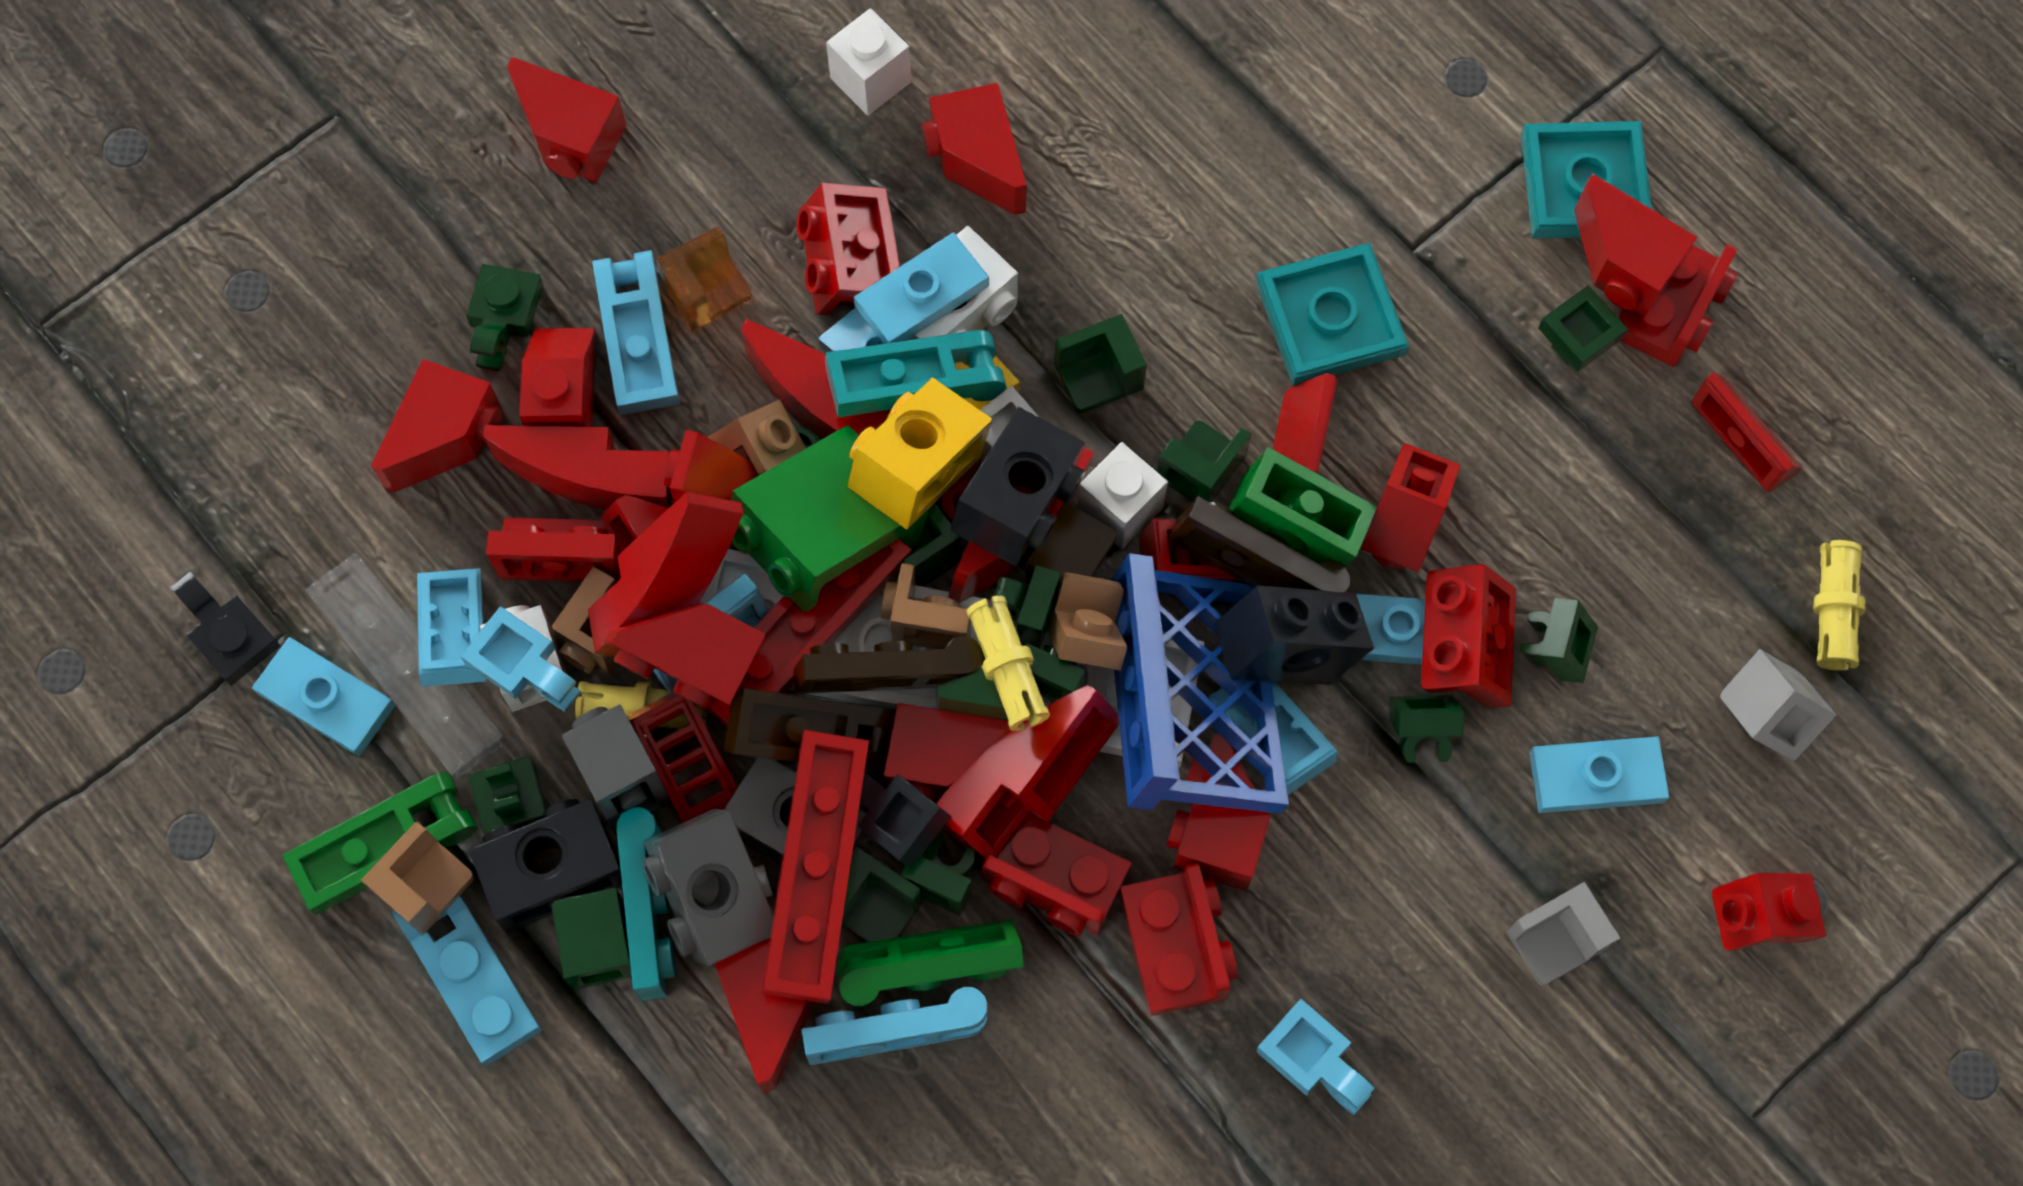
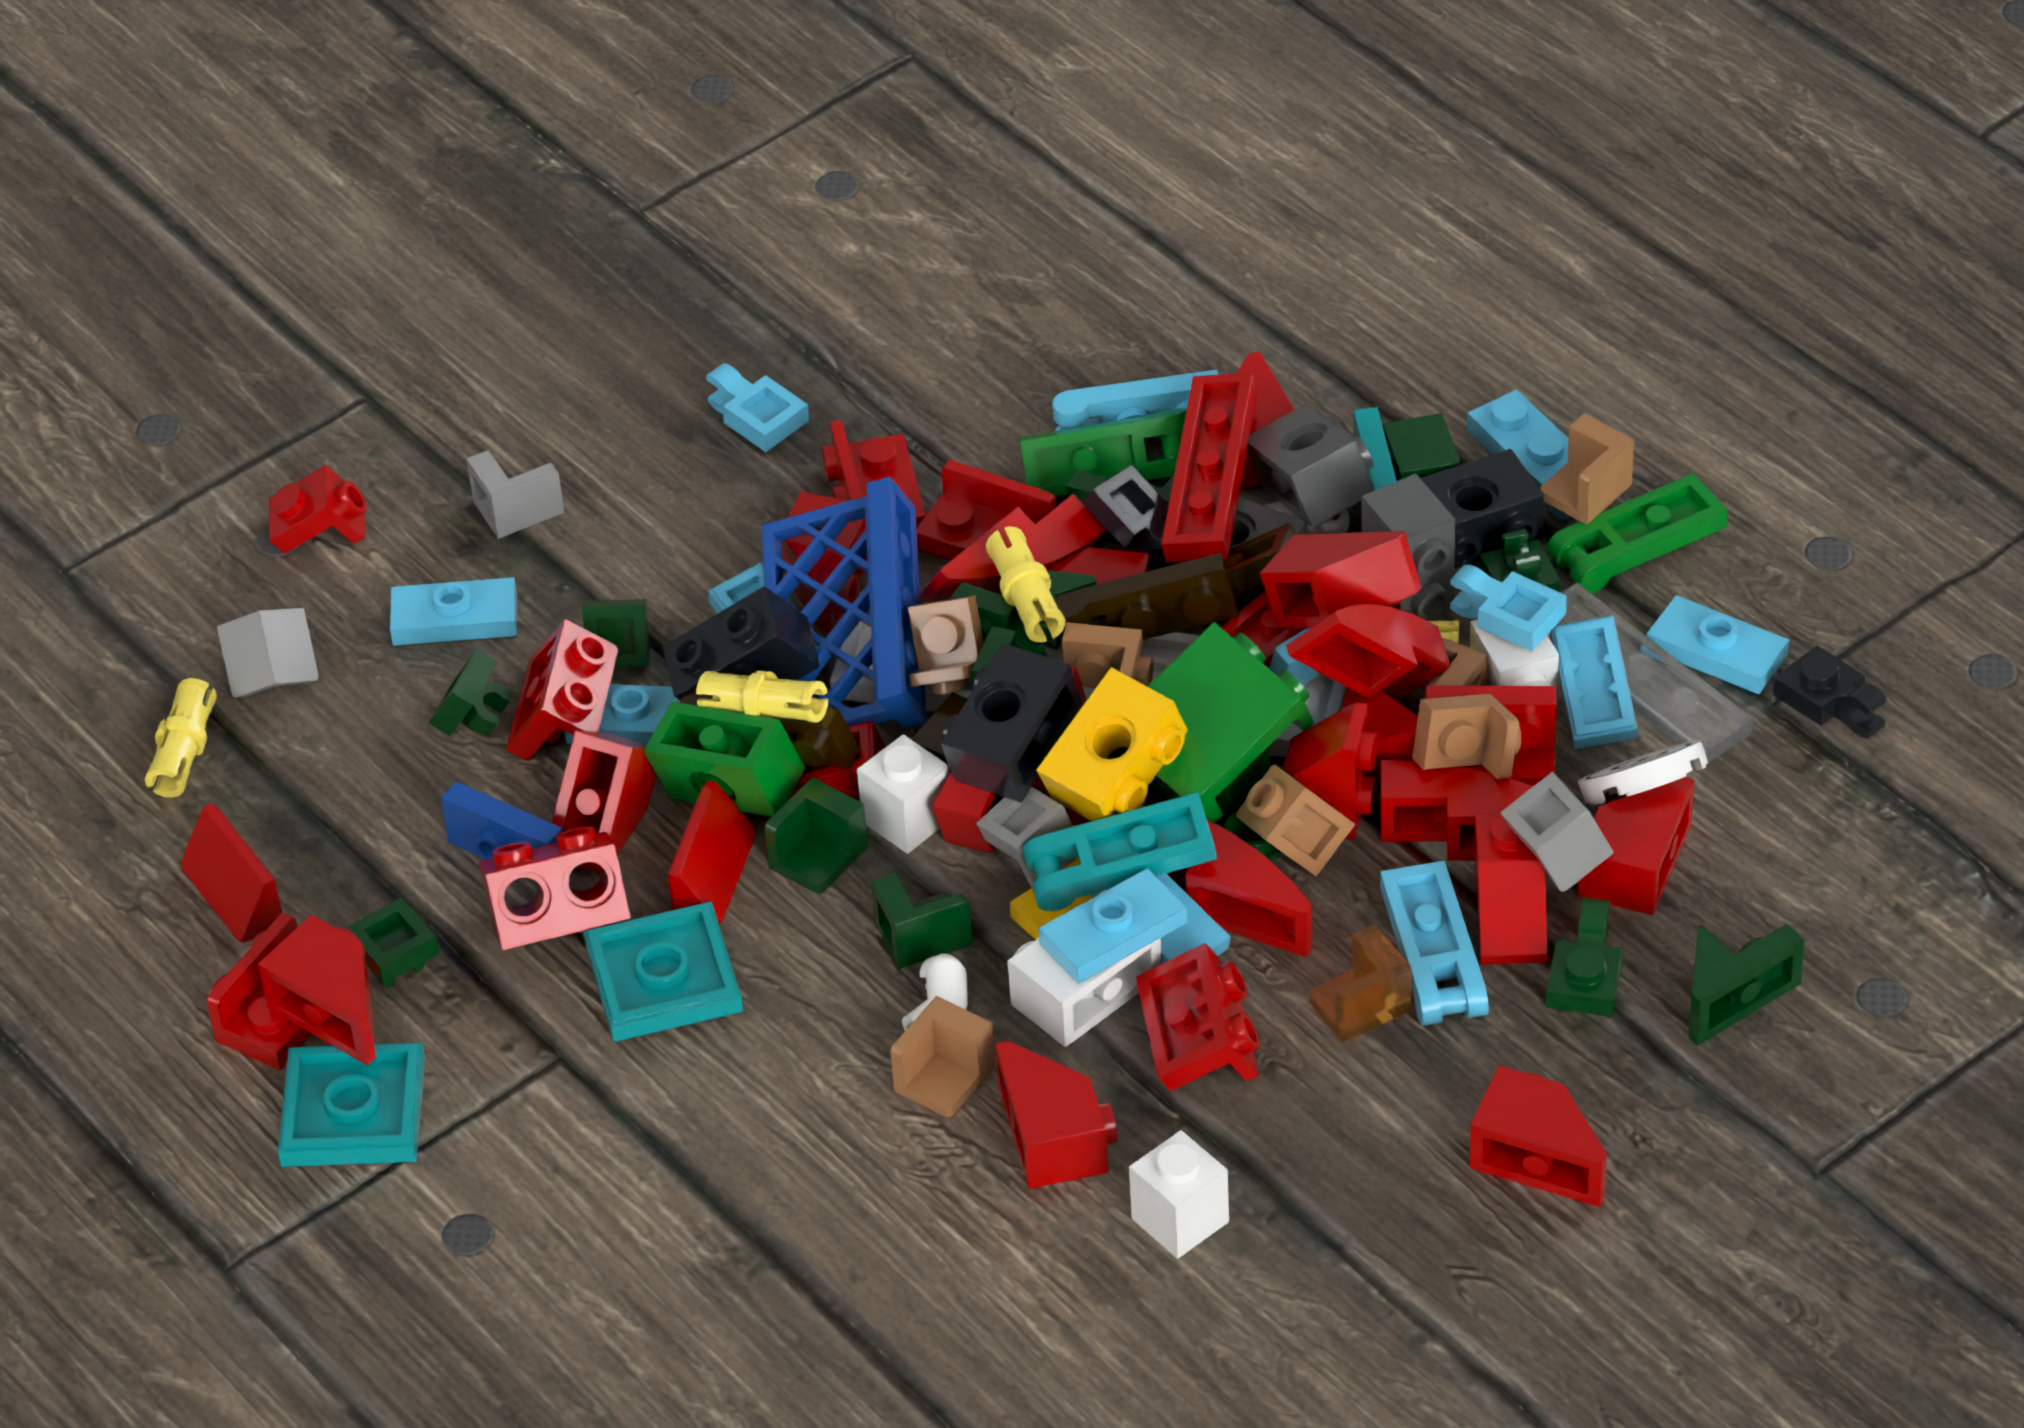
camera: 175 degrees left, 25 degrees down
(381, 265) = (1735, 985): none -> dark green slope
(417, 489) = (1644, 772): none -> white tile
(503, 364) = (1558, 831): none -> light grey panel
(588, 491) = (1466, 733): none -> medium nougat bracket
(1072, 216) = (943, 1057): none -> medium nougat panel
(1075, 287) = (944, 979): none -> white arm
(1303, 553) = (763, 695): none -> light yellow pin
(1442, 376) = (556, 906): none -> brick
(1500, 461) = (485, 823): none -> blue plate

